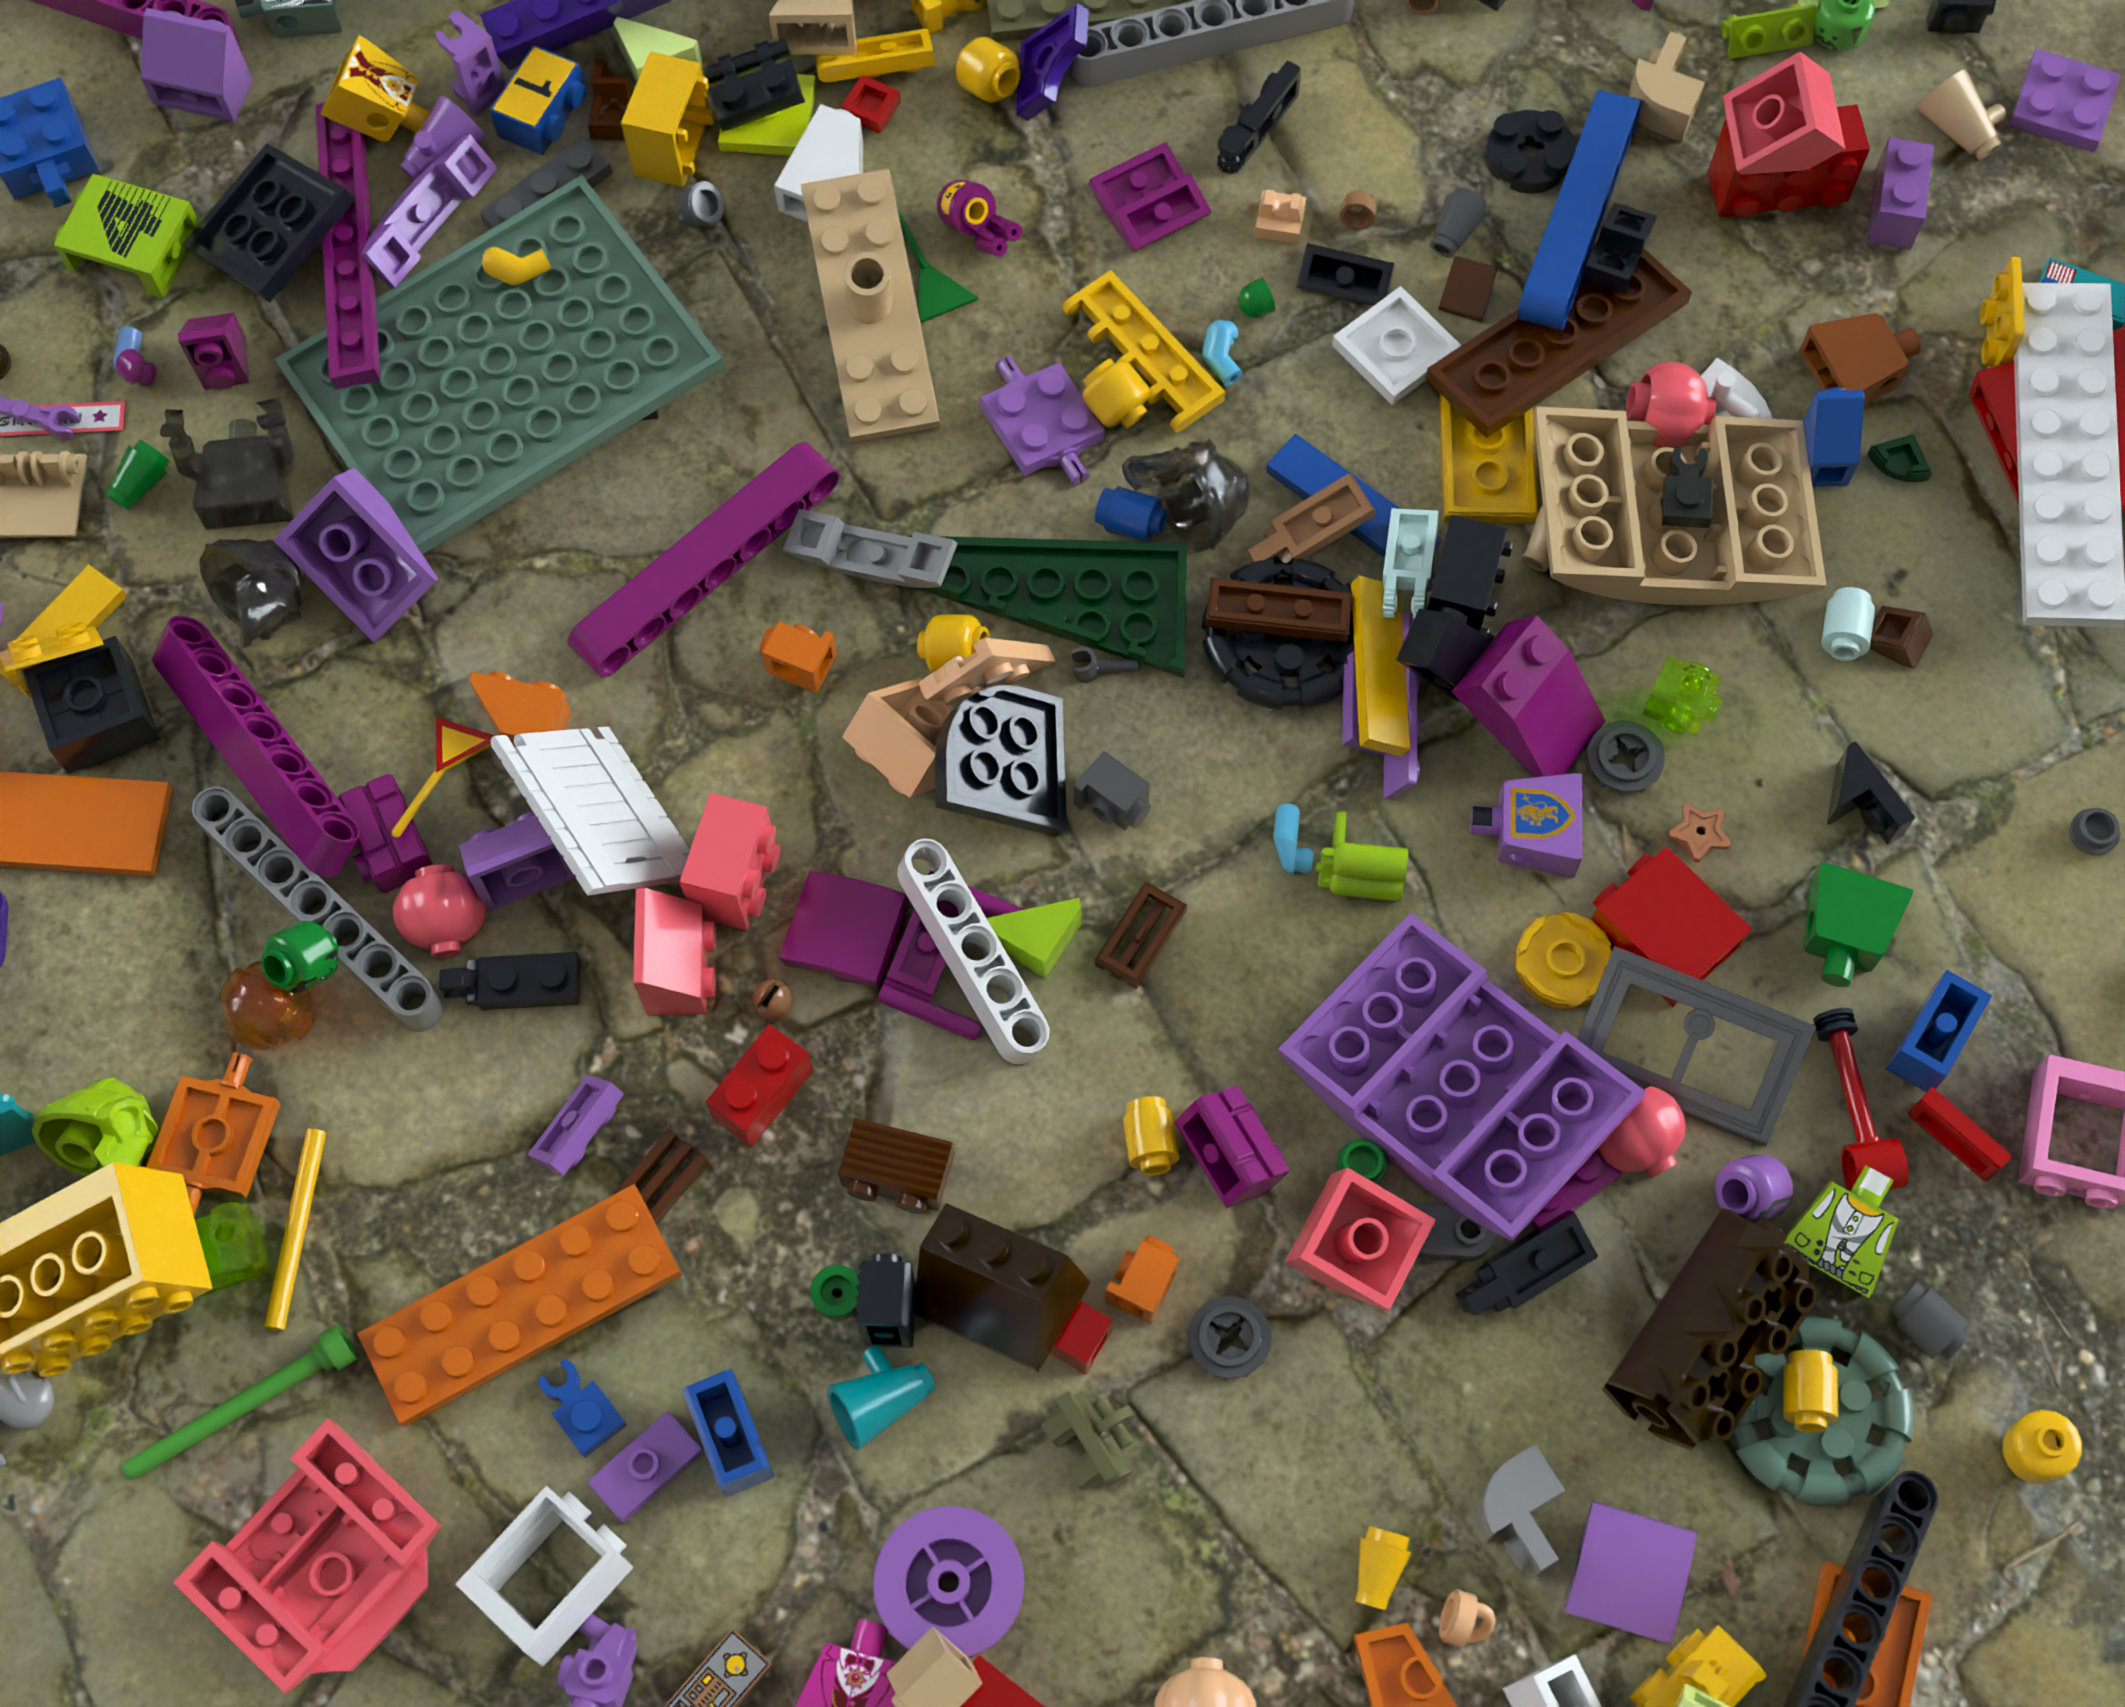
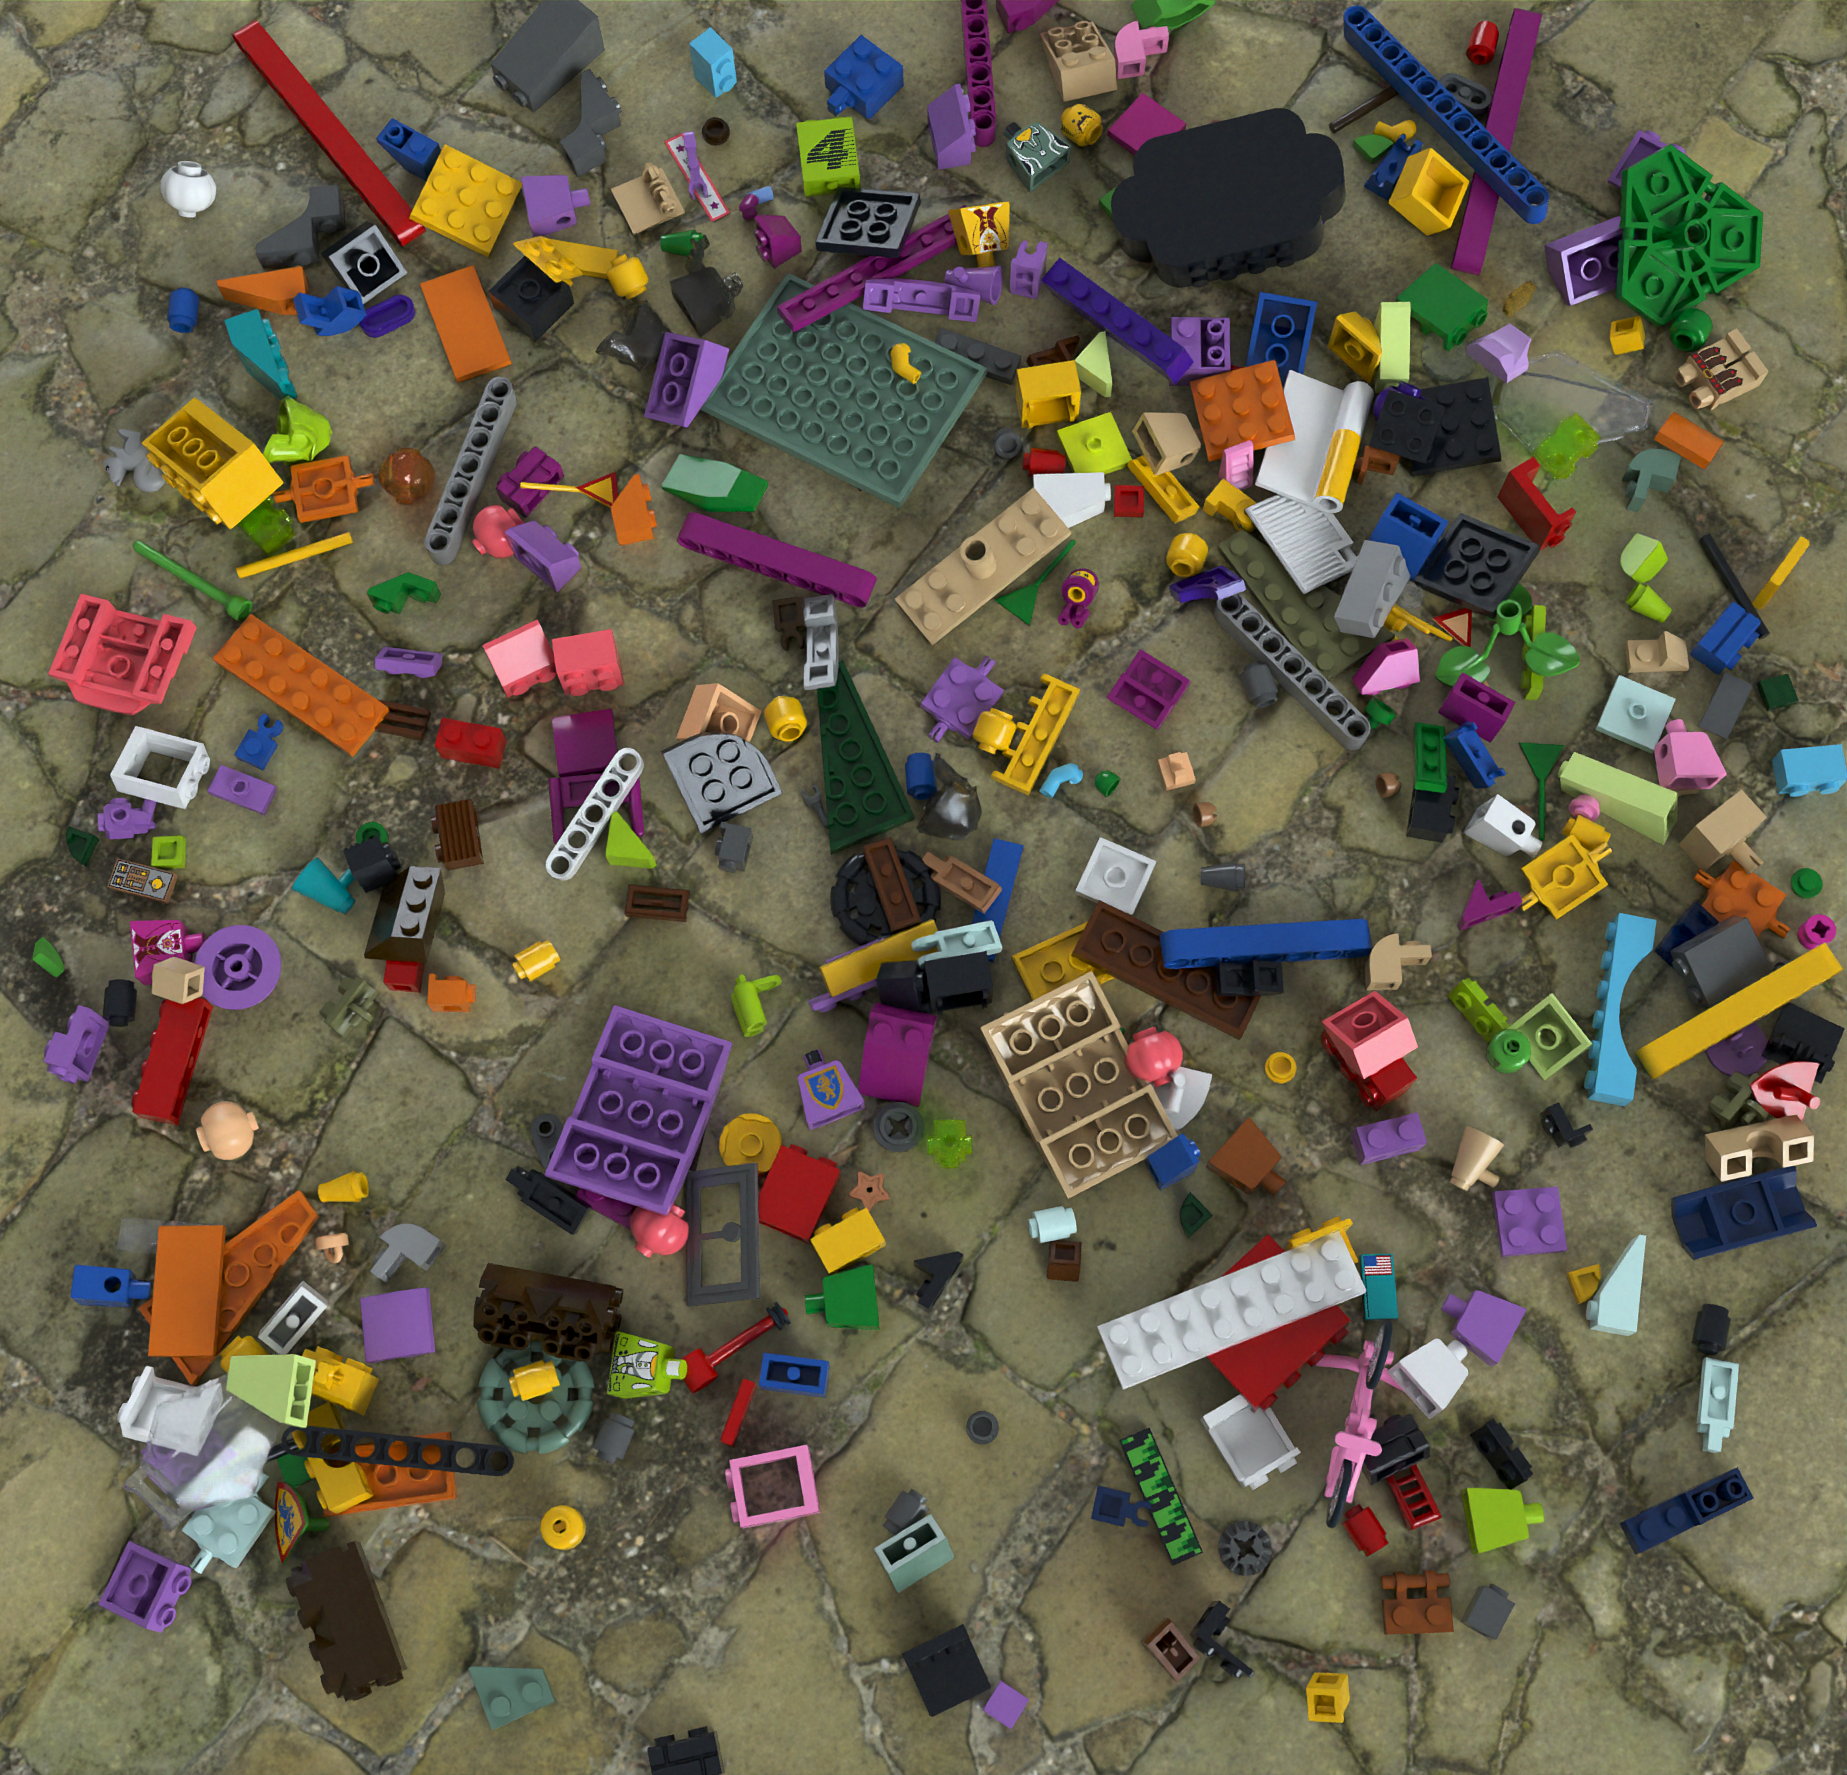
camera: 65 degrees right, 5 degrees up
(144, 563) = (627, 276): none -> yellow head
(256, 746) = (534, 393): magenta beam -> none
(299, 957) = (427, 475): green head -> none
(452, 1109) = (394, 593): none -> green slope
(515, 981) = (479, 591): black hinge -> none
(538, 100) = (1031, 319): brick -> none
(543, 589) = (714, 485): none -> green piece
(595, 808) = (584, 576): white door -> none
(688, 1626) = (168, 852): none -> lime tile
(728, 1433) = (270, 819): blue brick -> none
(756, 94) = (1095, 435): black plate -> none
(756, 175) = (1043, 461): none -> red brick
(780, 1004) = (526, 731): medium nougat hinge -> none
(798, 654) = (739, 638): orange brick -> none
(802, 577) = (788, 618): none -> dark brown plate
(992, 665) = (763, 740): light nougat wing -> none
(1213, 70) = (1259, 684): none -> dark grey brick
(1224, 1314) = (432, 1043): dark grey gear -> none
(1232, 1146) = (546, 1006): magenta brick -> none
(1259, 119) = (1237, 727): black hinge -> none
(1285, 839) = (750, 955): medium azure arm -> none
(1345, 274) = (1155, 827): black slope -> none
(1360, 1239) = (519, 1098): coral slope -> none
(1363, 1158) = (570, 1082): green plate -> none
(1468, 288) = (1179, 903): reddish brown slope -> none
(1536, 129) = (1310, 882): black plate -> none
(1686, 493) = (1083, 1089): pearl dark grey plate -> none
(1746, 273) = (1280, 1067): none -> yellow plate
(1754, 1187) = (648, 1305): medium lavender head -> none
(1770, 883) = (847, 1241): none -> yellow brick

